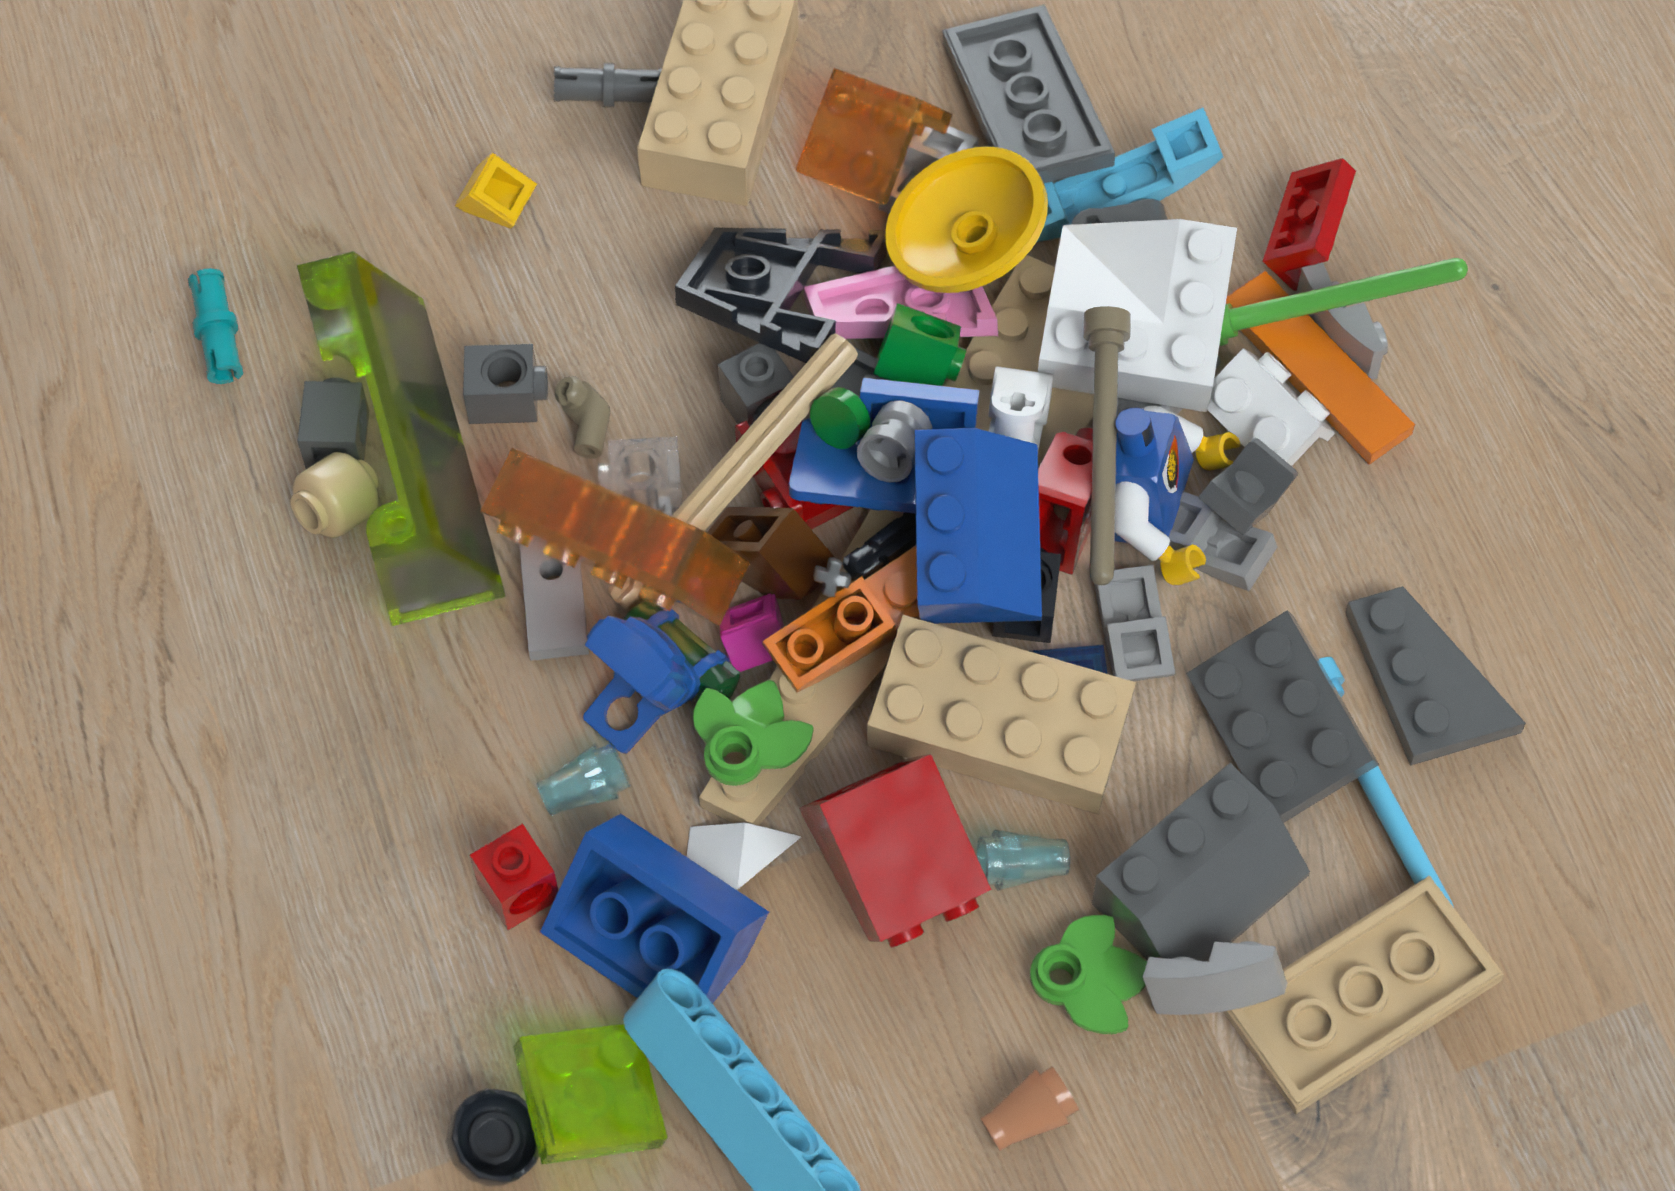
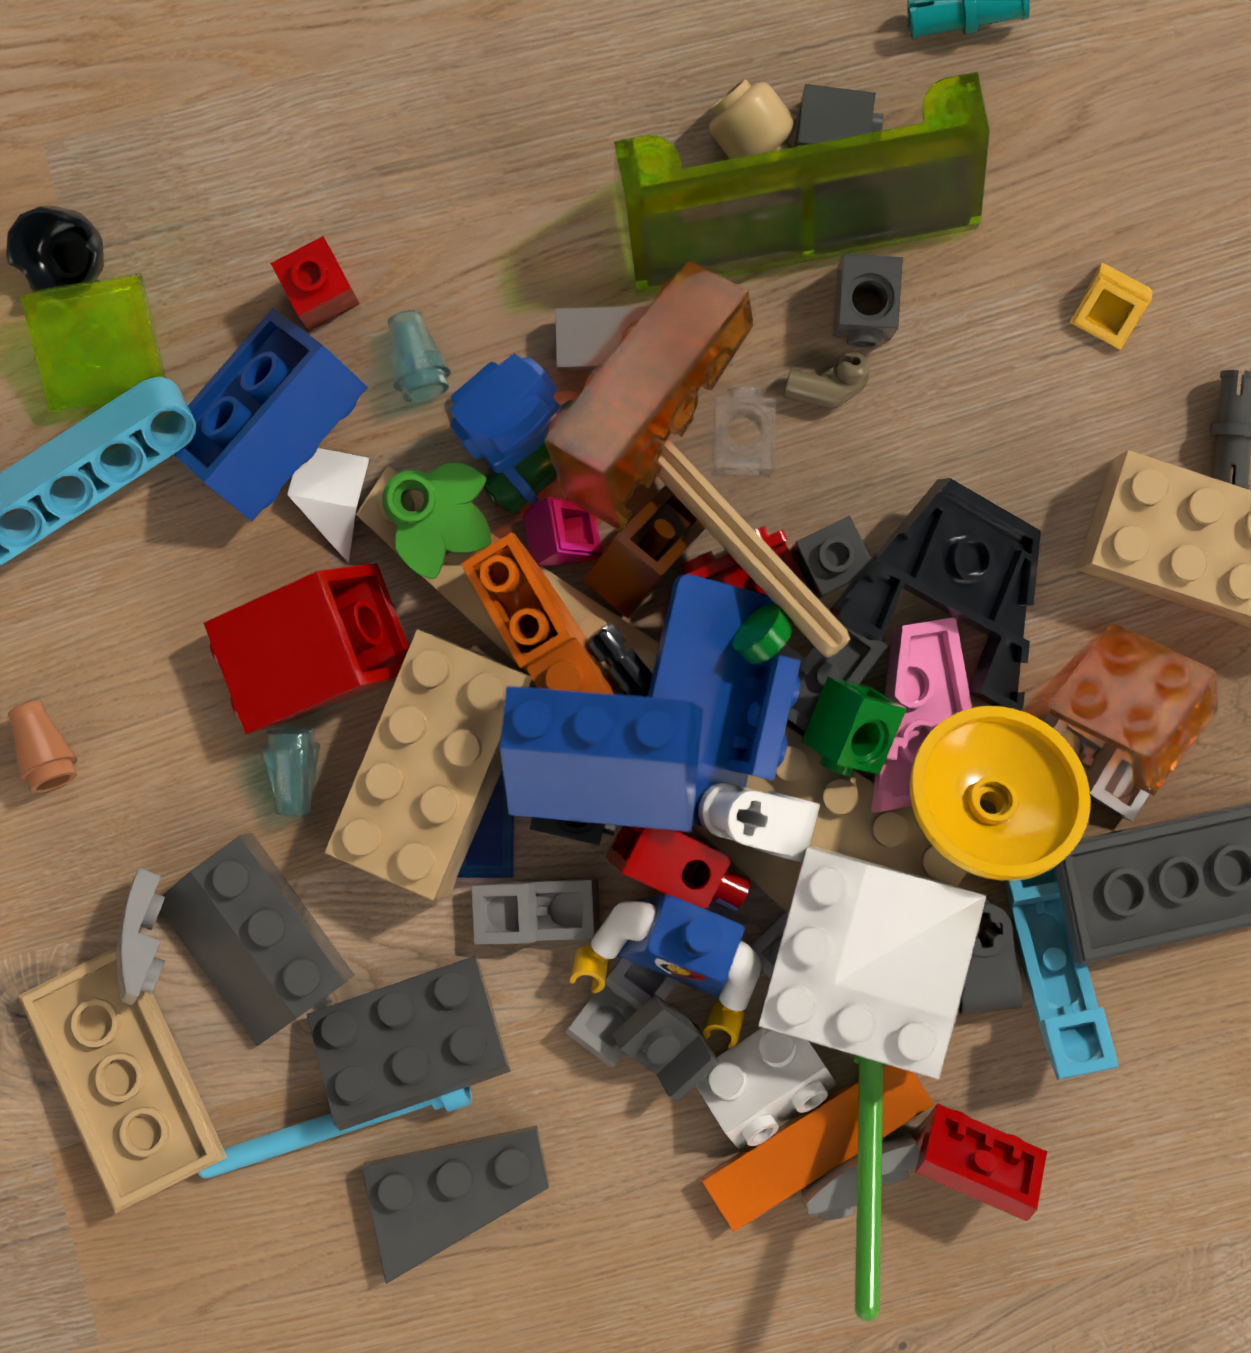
camera: 90 degrees right, 25 degrees up
(831, 577) = (561, 604): dark grey axle -> none
(890, 444) = (725, 687): light grey wheel -> none
(1100, 975) = (169, 829): bright green plate -> none
(1106, 331) = (809, 919): dark tan piece -> none

